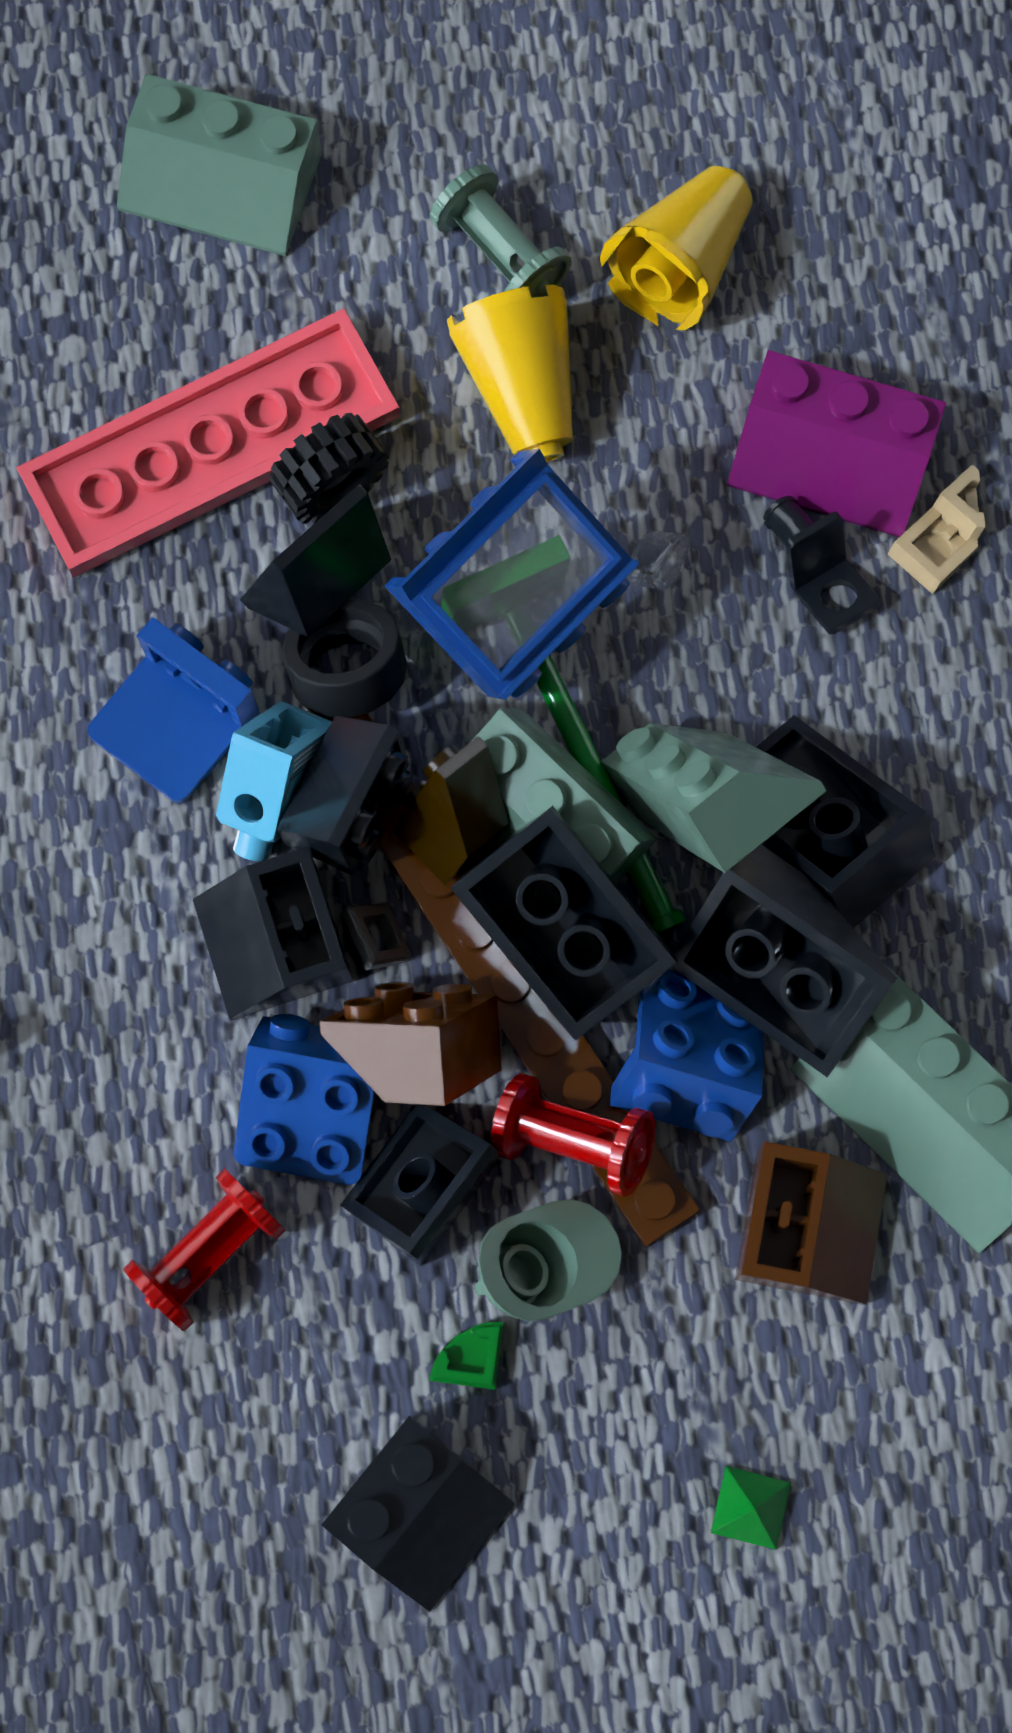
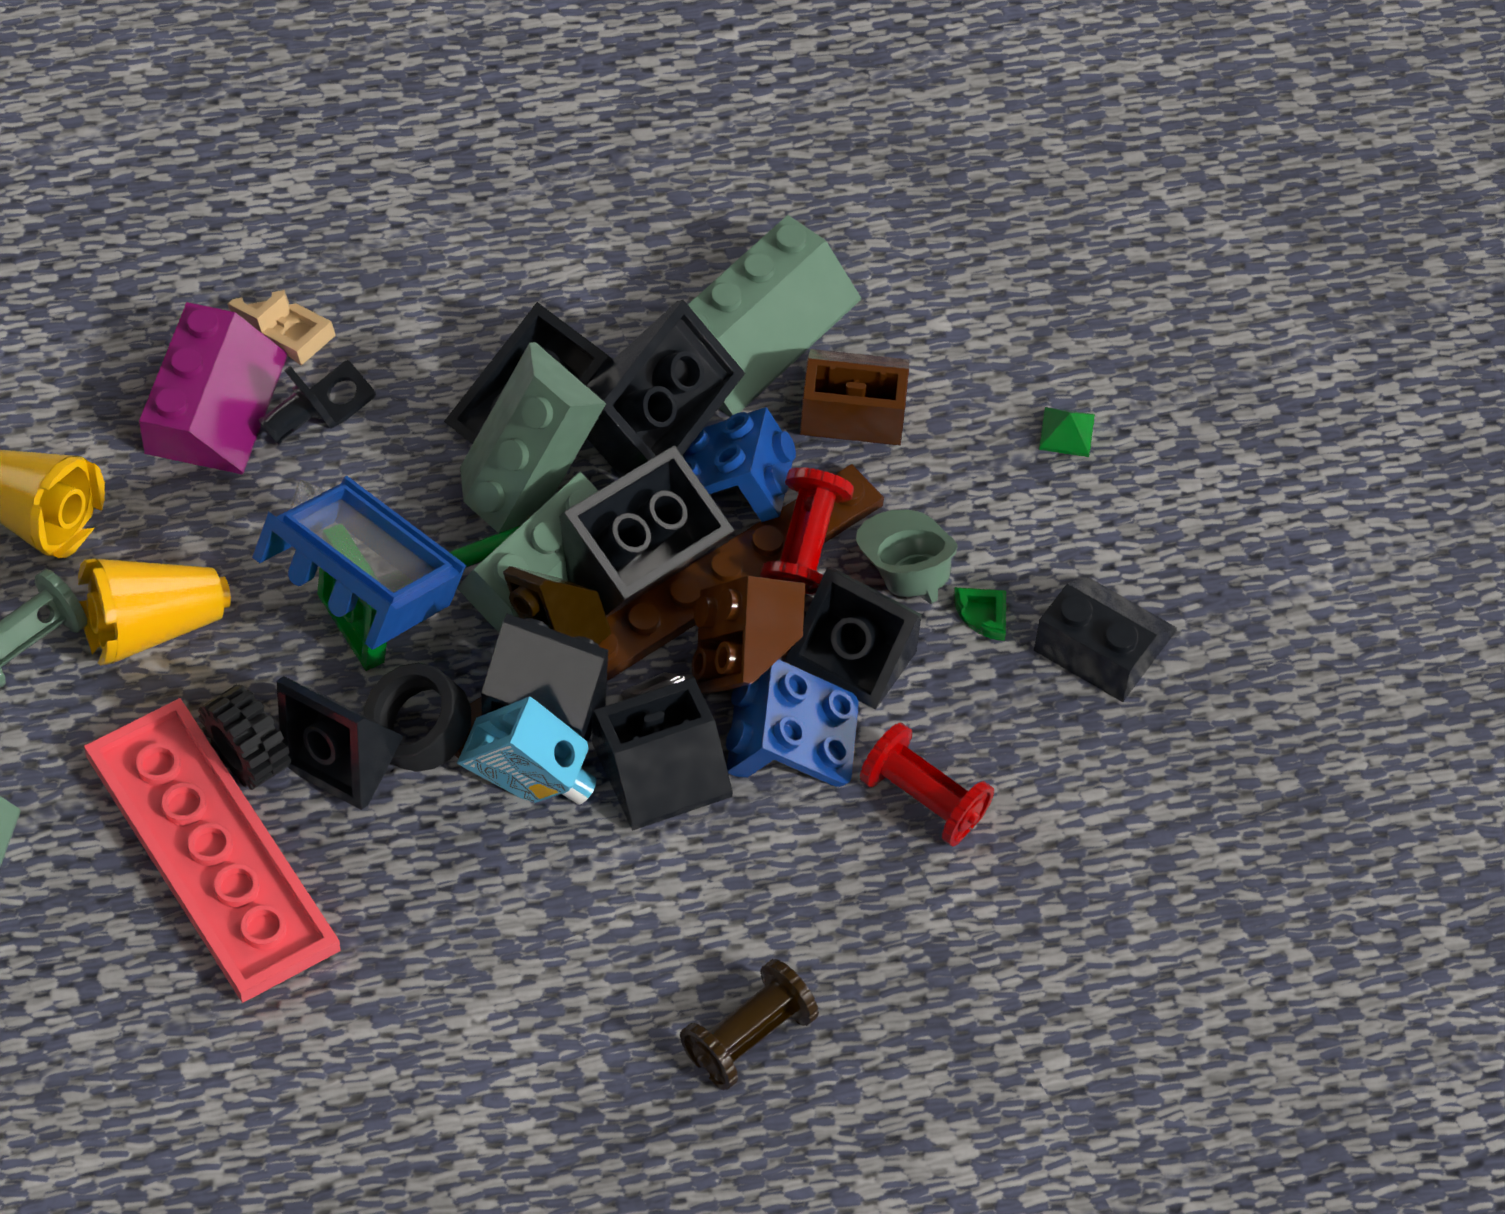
camera: 100 degrees left, 20 degrees down
(174, 712) = (465, 849): blue bracket -> none

